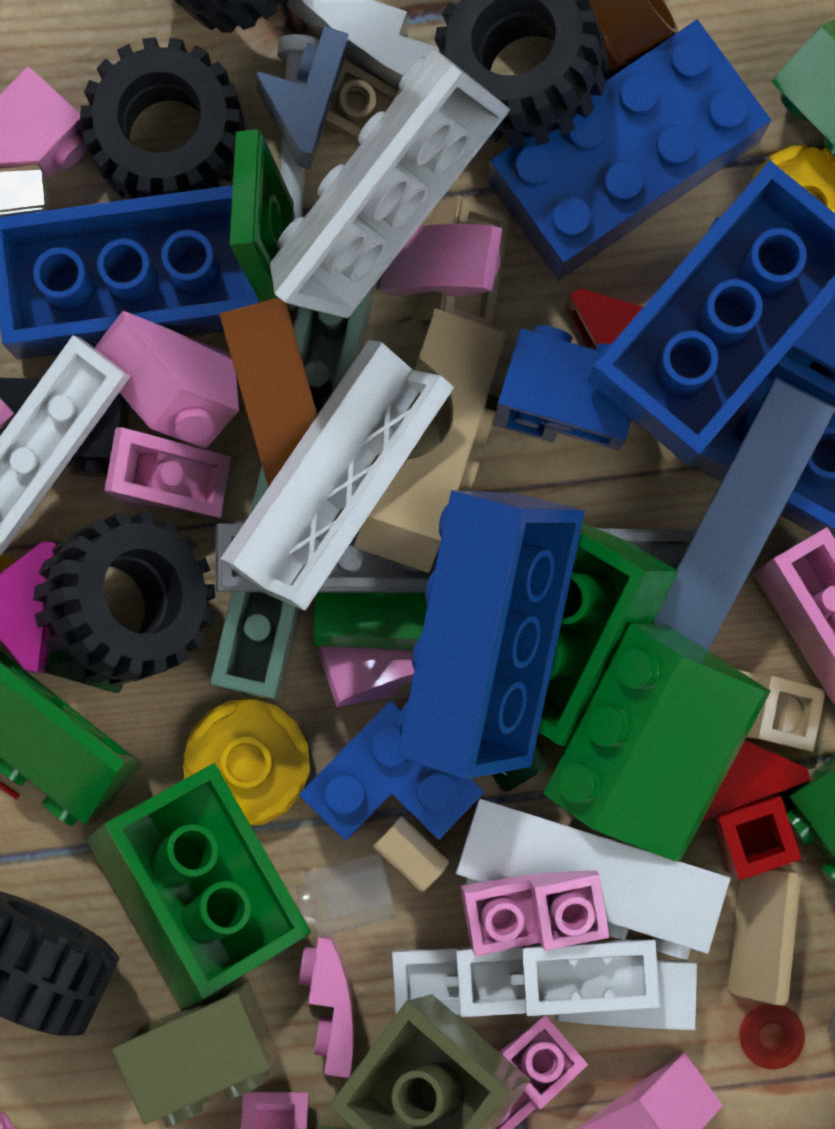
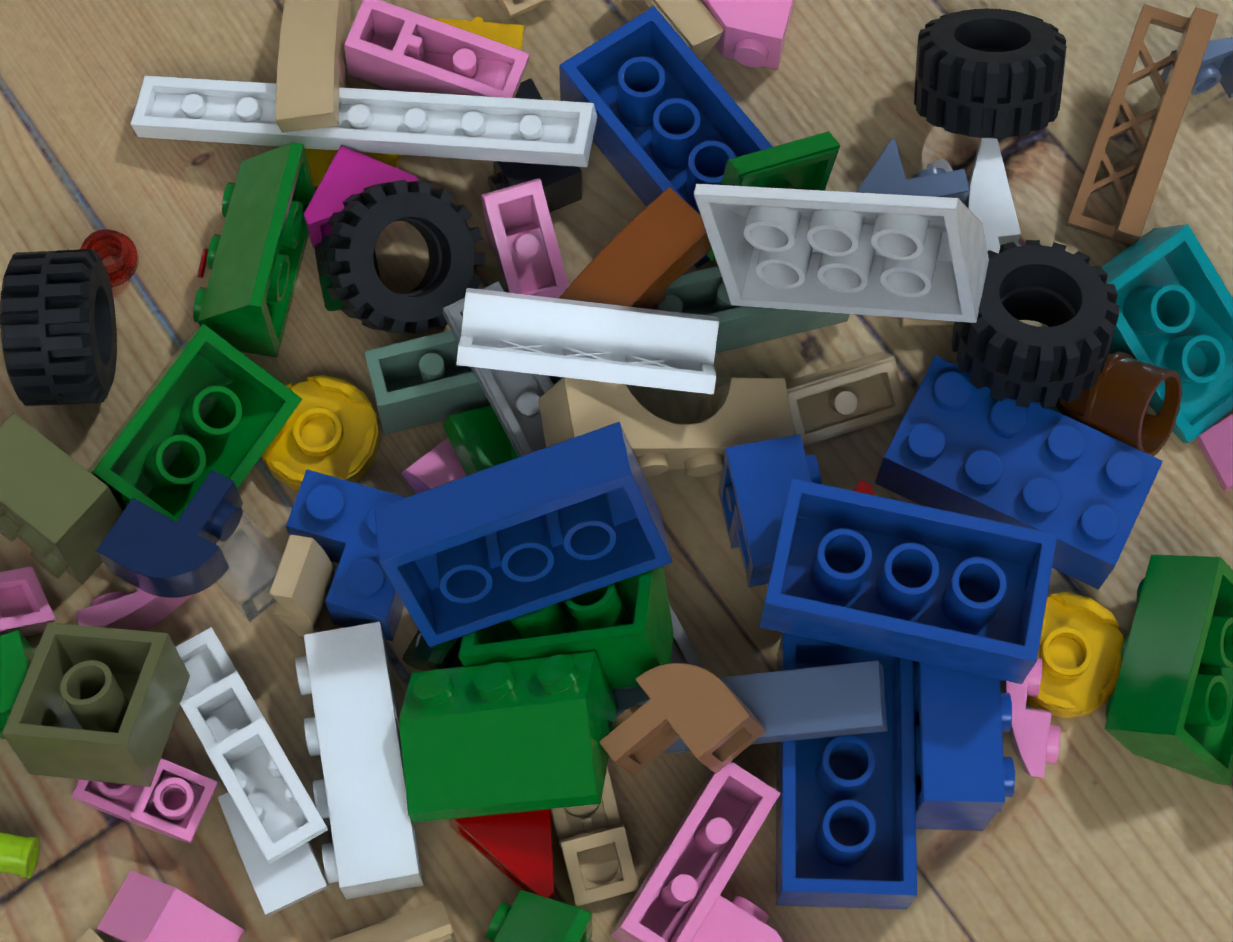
camera: 60 degrees right, 15 degrees down
(150, 78) = (821, 67): black tyre -> none
(174, 379) = (600, 198): bright pink slope -> none
(326, 966) = (170, 555): none -> dark blue brick
(445, 260) = (830, 367): bright pink slope -> none
(534, 909) = (302, 712): bright pink slope -> none
(728, 560) = (683, 705): none -> medium nougat brick
(756, 838) = (469, 881): red brick -> none

